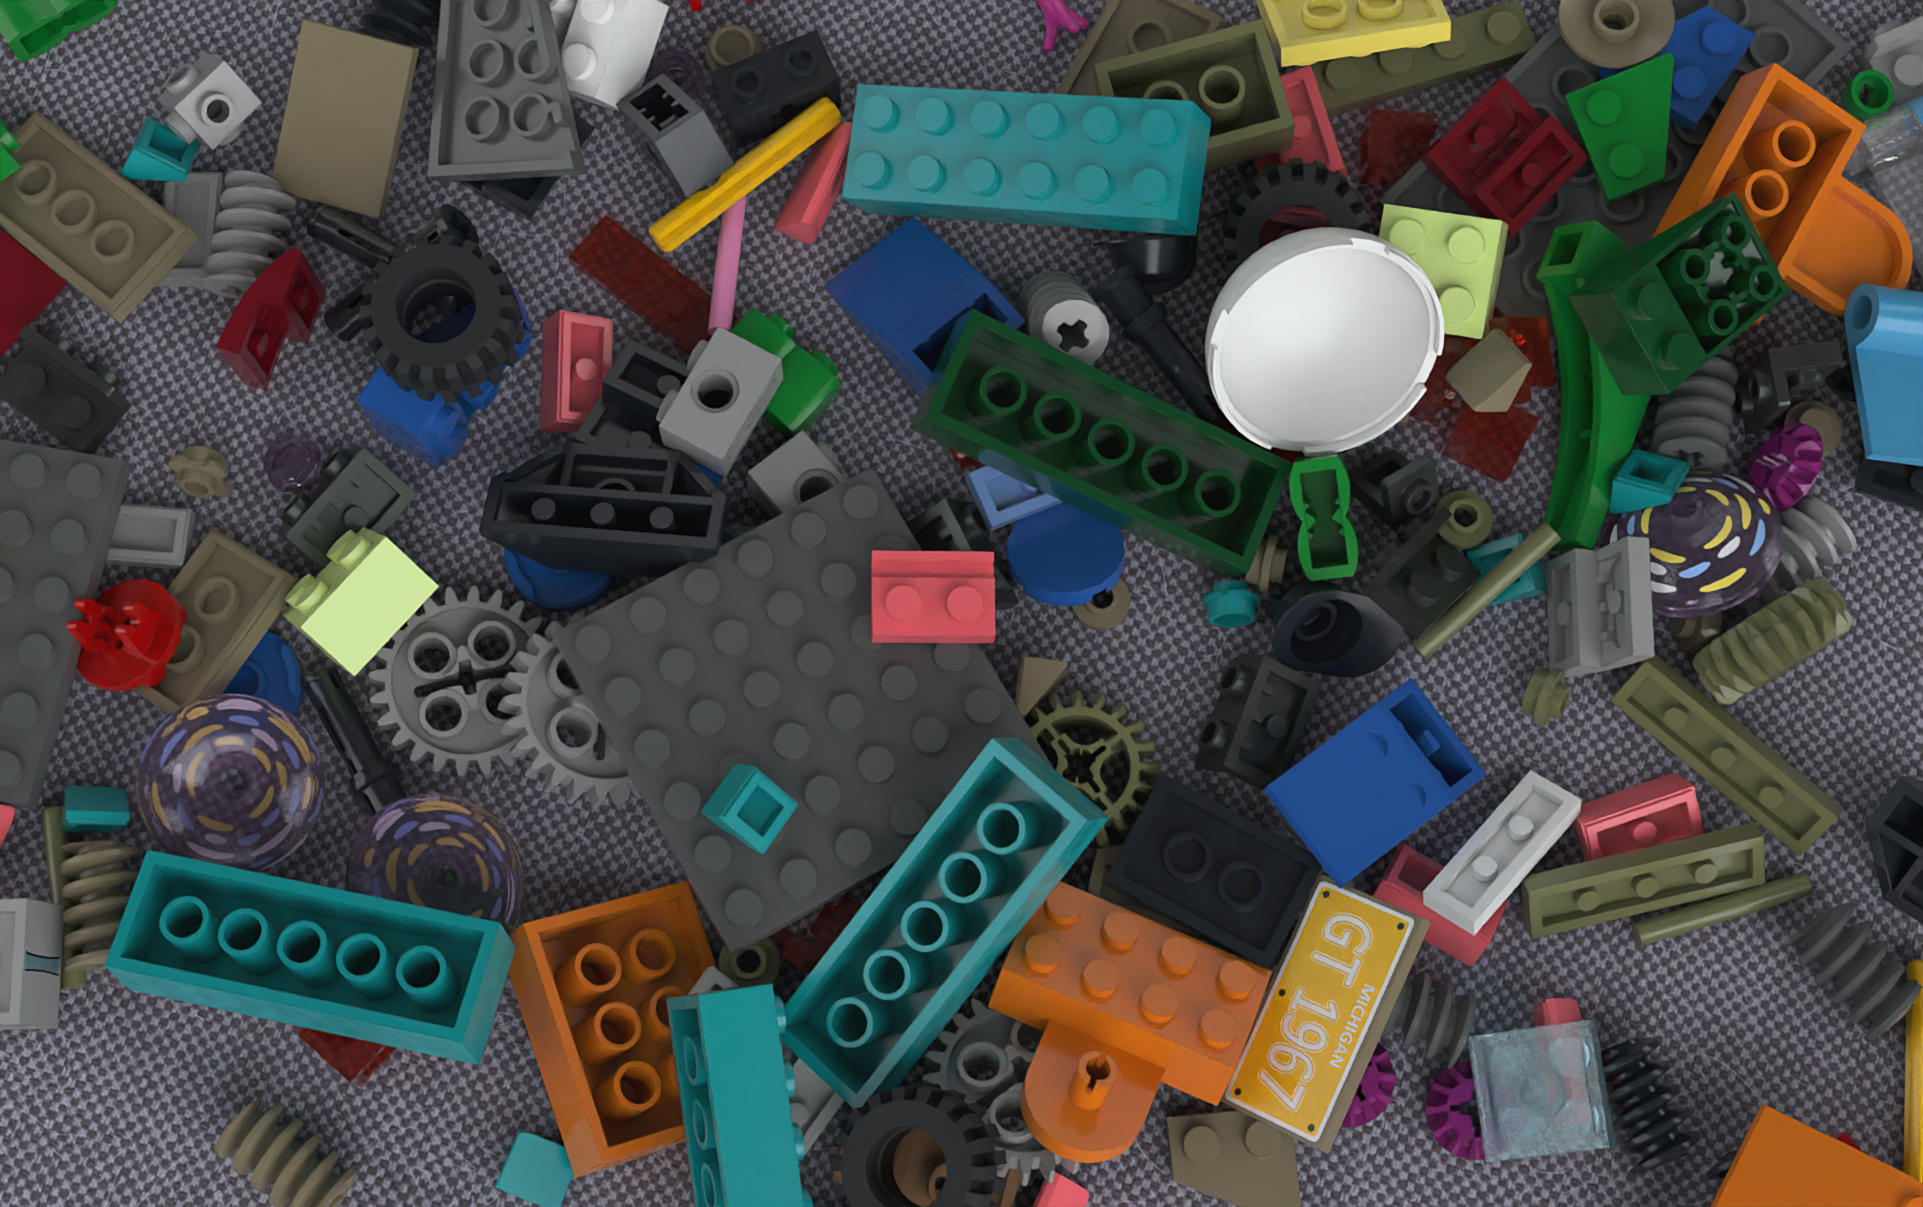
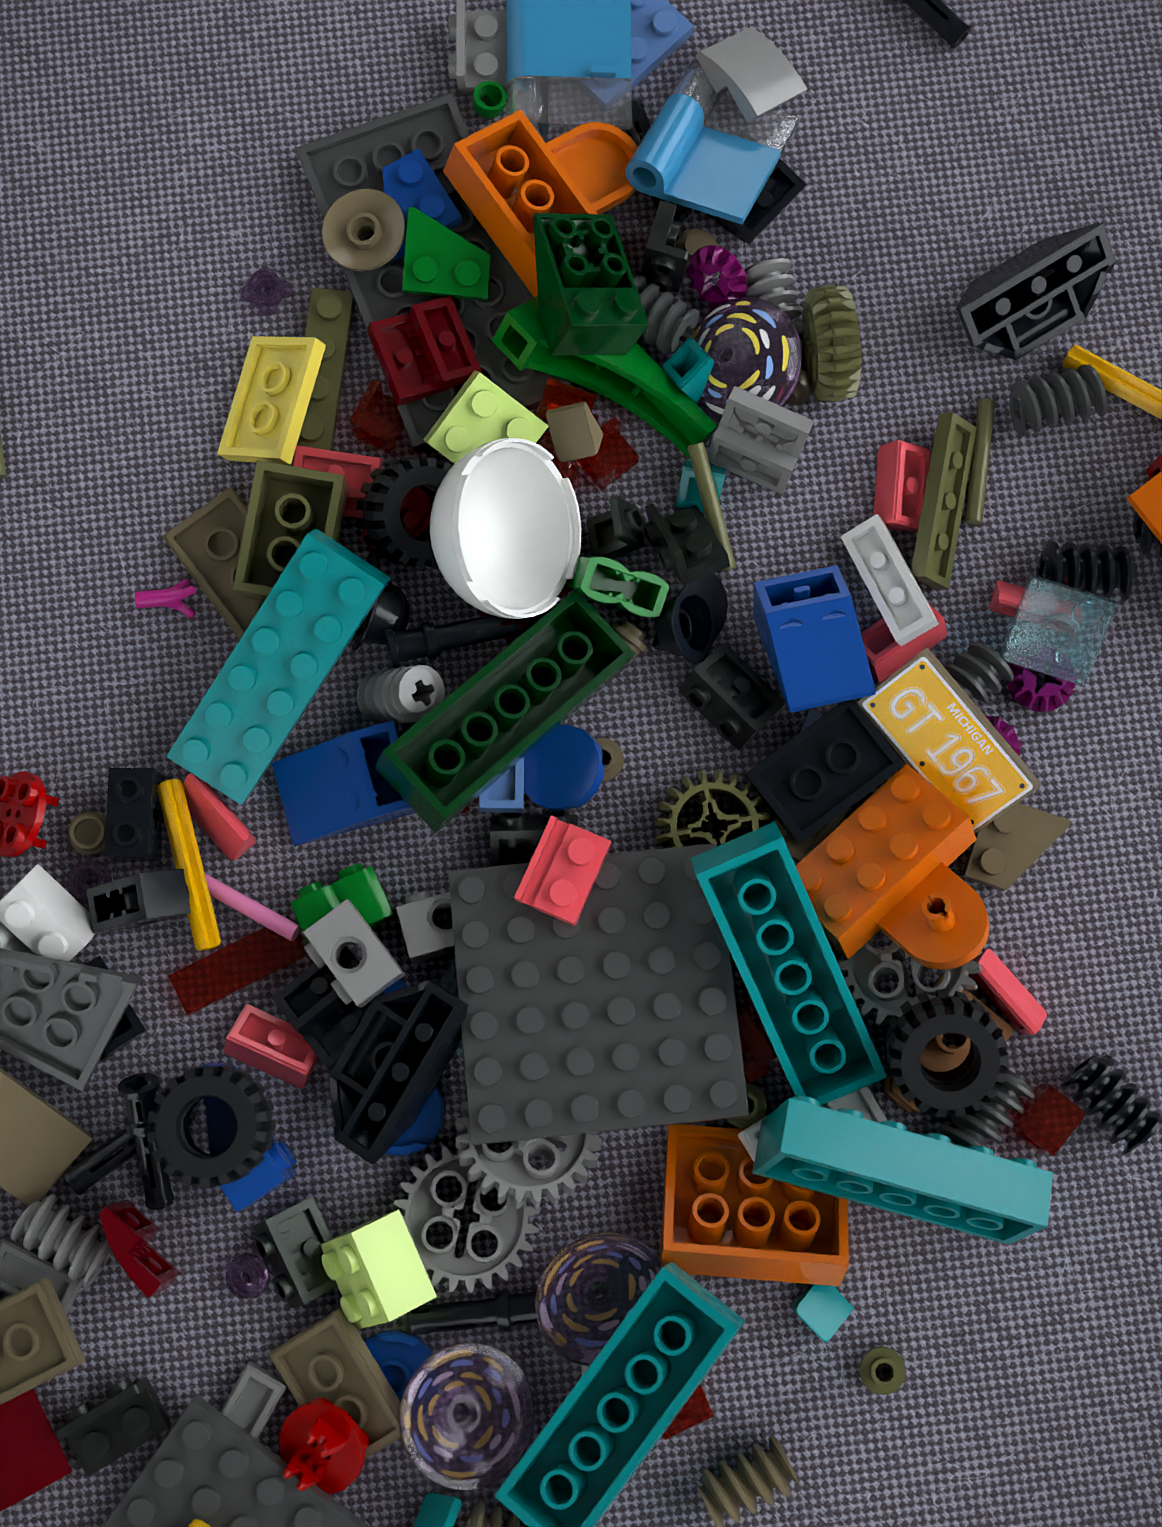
camera: 65 degrees left, 5 degrees up
(201, 472) = (224, 1345): dark tan plate -> none
(749, 807) = (656, 1060): teal slope -> none
(1036, 681) = (642, 830): dark tan slope -> none
(1231, 604) = (644, 675): teal plate -> none
(1460, 536) = (659, 485): olive plate -> none
(1546, 696) = (797, 502): olive plate -> none
(1727, 754) = (886, 409): olive plate -> none

